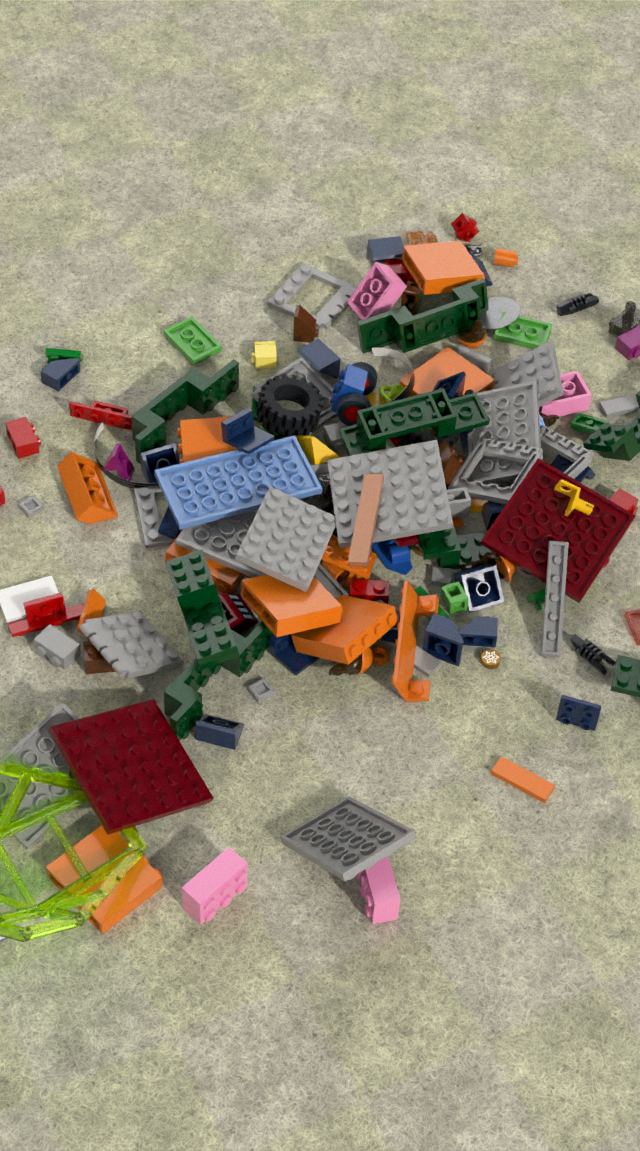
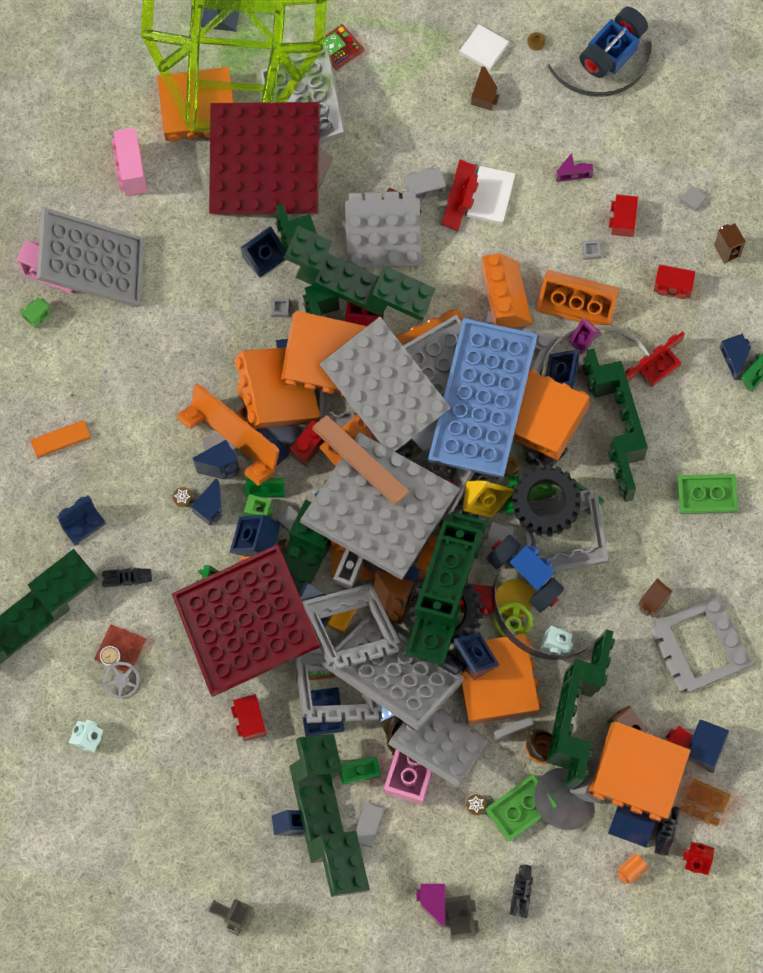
camera: 130 degrees right, 20 degrees up
(92, 608) = (438, 224): orange tile -> none
(123, 535) = (505, 291): none -> orange slope
(242, 434) = (525, 429): dark blue bracket -> none
(264, 355) = (644, 542): light yellow brick -> none
(321, 358) = (599, 579): dark blue slope -> none
(376, 292) = (645, 684): bright pink brick -> none
(388, 364) = (556, 641): none -> light aqua brick
(426, 872) = (36, 312): none -> bright green brick
(554, 599) = (188, 572): light grey tile -> none
(574, 502) = (252, 640): yellow bracket -> none

